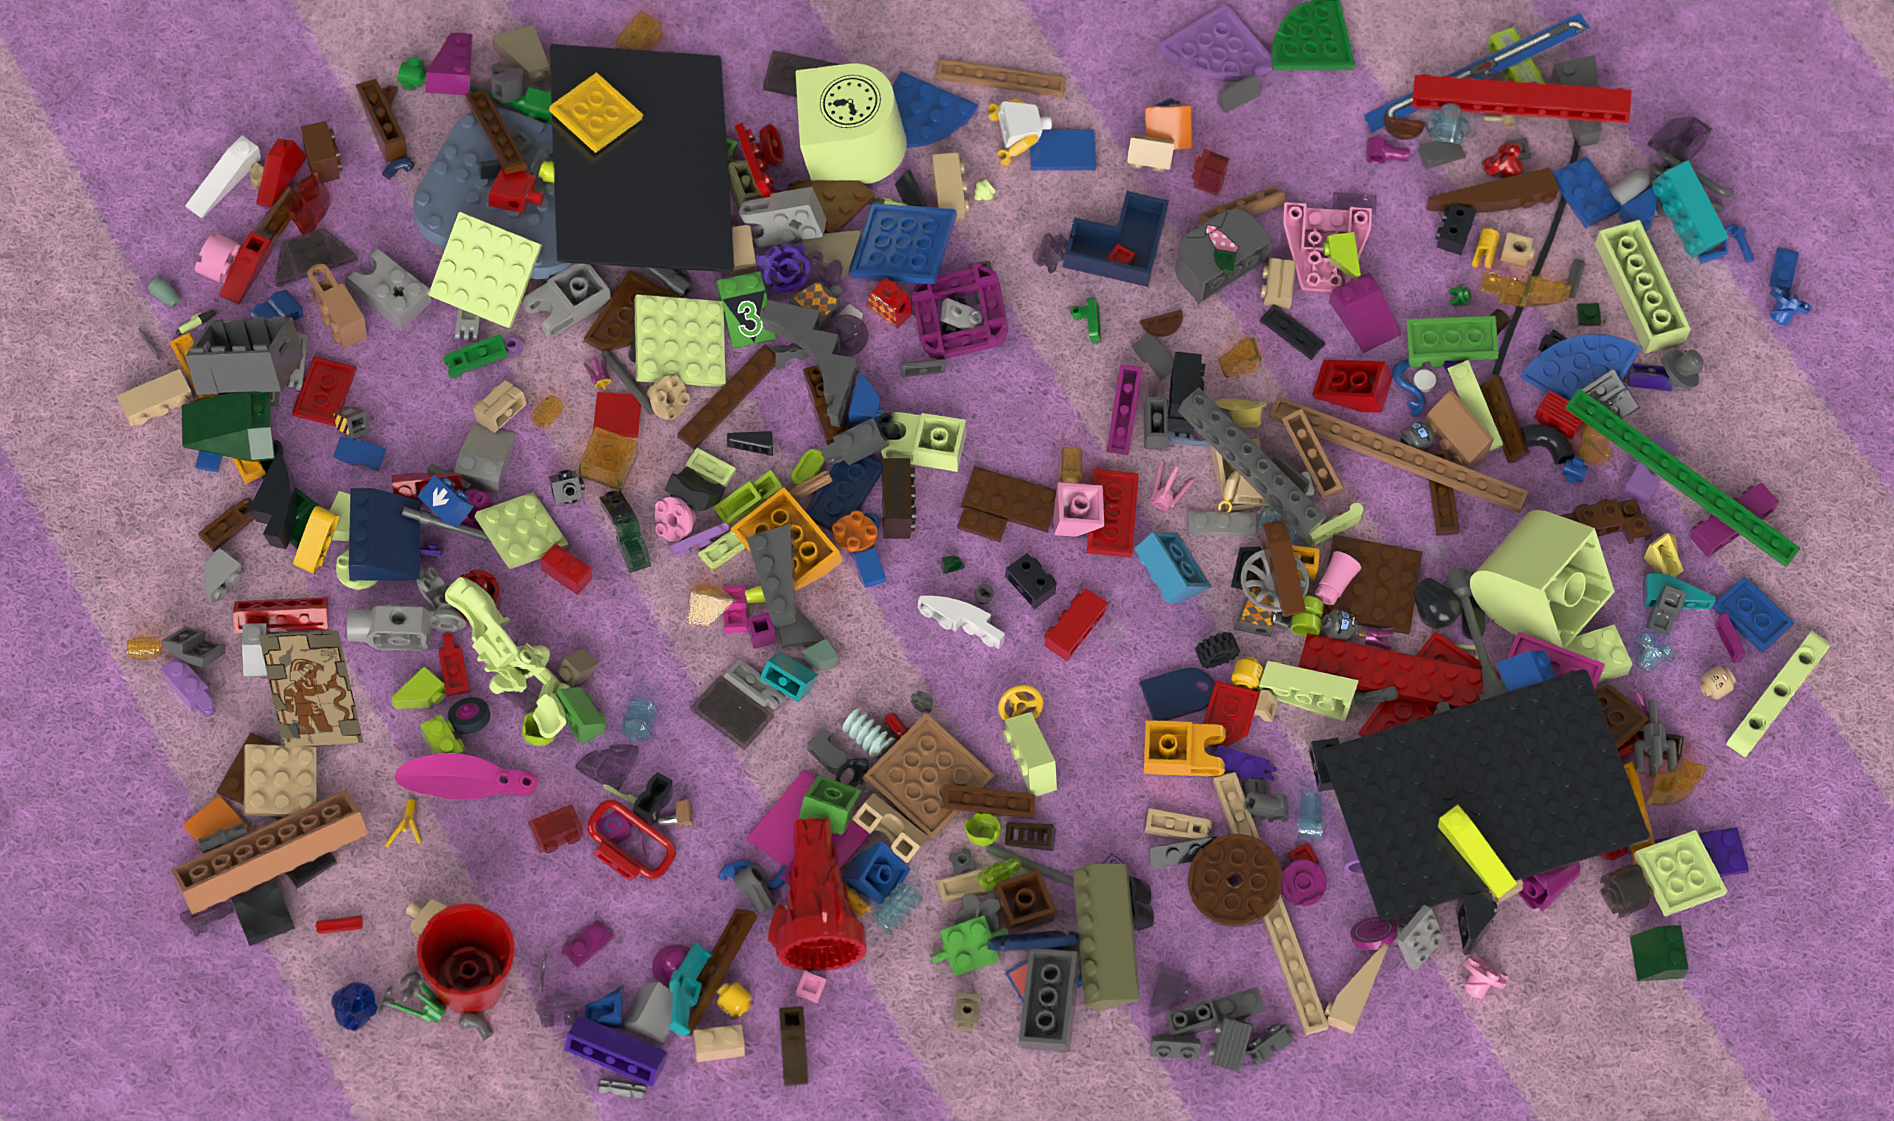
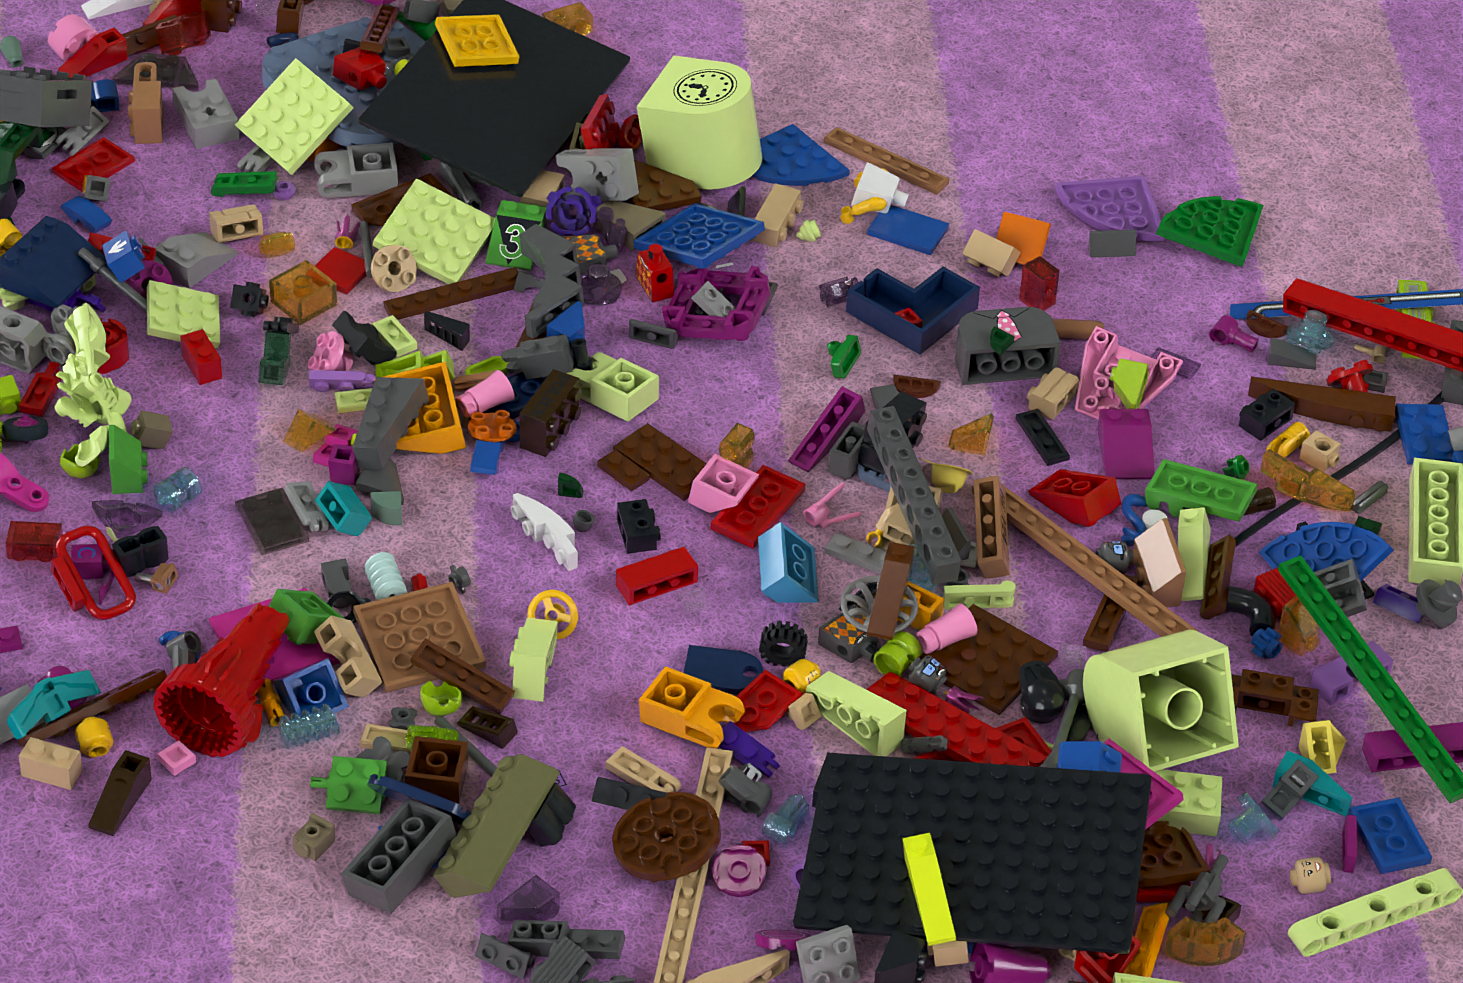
camera: 30 degrees right, 20 degrees down
(833, 503) = (486, 395): none -> bright pink plant

